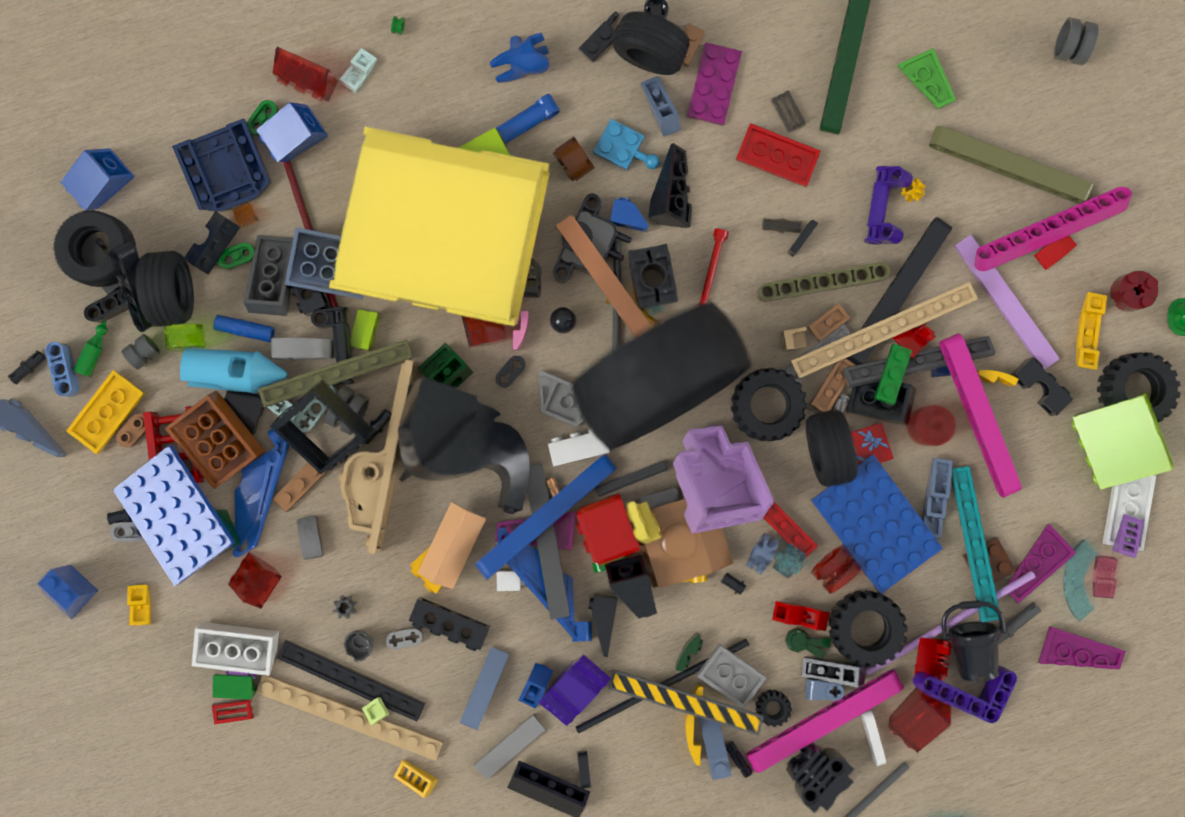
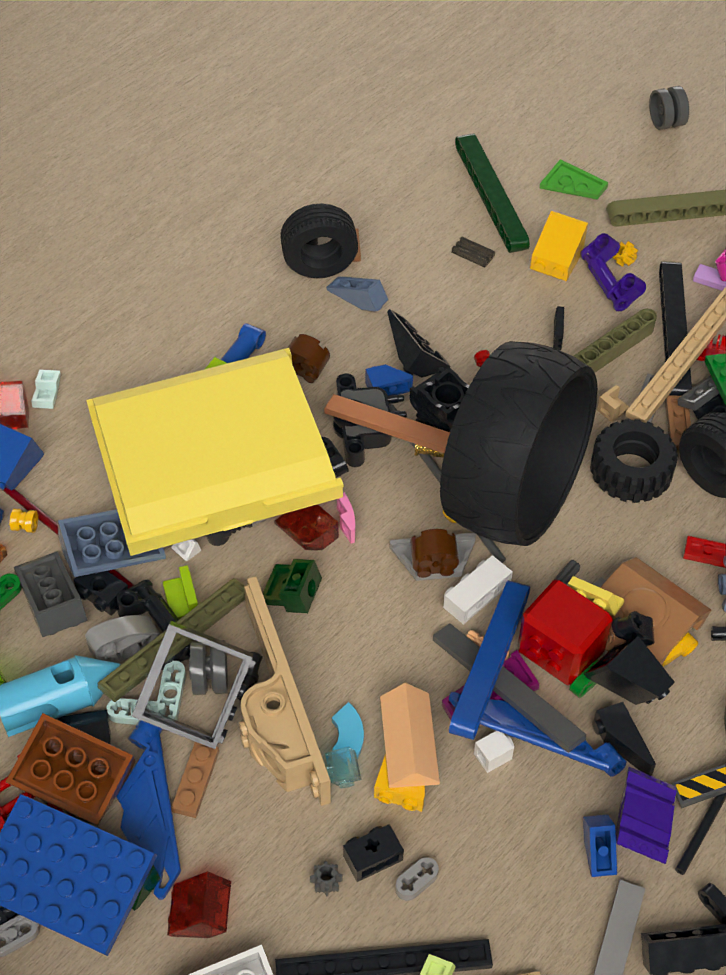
camera: 30 degrees left, 35 degrees down
(244, 328) = (44, 654): blue axle -> none
(281, 198) = (23, 520): none -> yellow wheel
(309, 537) = (240, 827): flat silver slope -> none
(358, 645) = (368, 910): dark grey hair -> none
(374, 609) = (363, 861): none -> black brick
(397, 25) = (66, 338): green bush -> none
(398, 536) = (343, 767): none -> clear light blue brick
(421, 510) = (349, 729): none -> medium azure tile
(453, 435) = (350, 624): black animal -> none
(460, 621) = (469, 821): black brick -> none
(484, 688) = (545, 880): sand blue slope -> none
(507, 368) = (364, 560): black beam -> none
(522, 58) = (207, 308): blue piece -> none
(557, 409) = (434, 553): none -> reddish brown brick
(563, 320) = (384, 486): black piece -> none
(600, 39) = (268, 271): black hinge -> none
(621, 145) = (343, 335): dark azure plate -> none
(655, 560) = (634, 626): none -> black piece
(714, 84) = (393, 261): magenta plate -> none
(720, 481) = (645, 535): lavender panel -> none
(778, 155) = (489, 282): red plate -> none
(782, 225) = (532, 328): clear smoke pin -> none
(828, 322) = (634, 378): medium nougat plate -> none
(859, 153) = (559, 246): none -> yellow slope

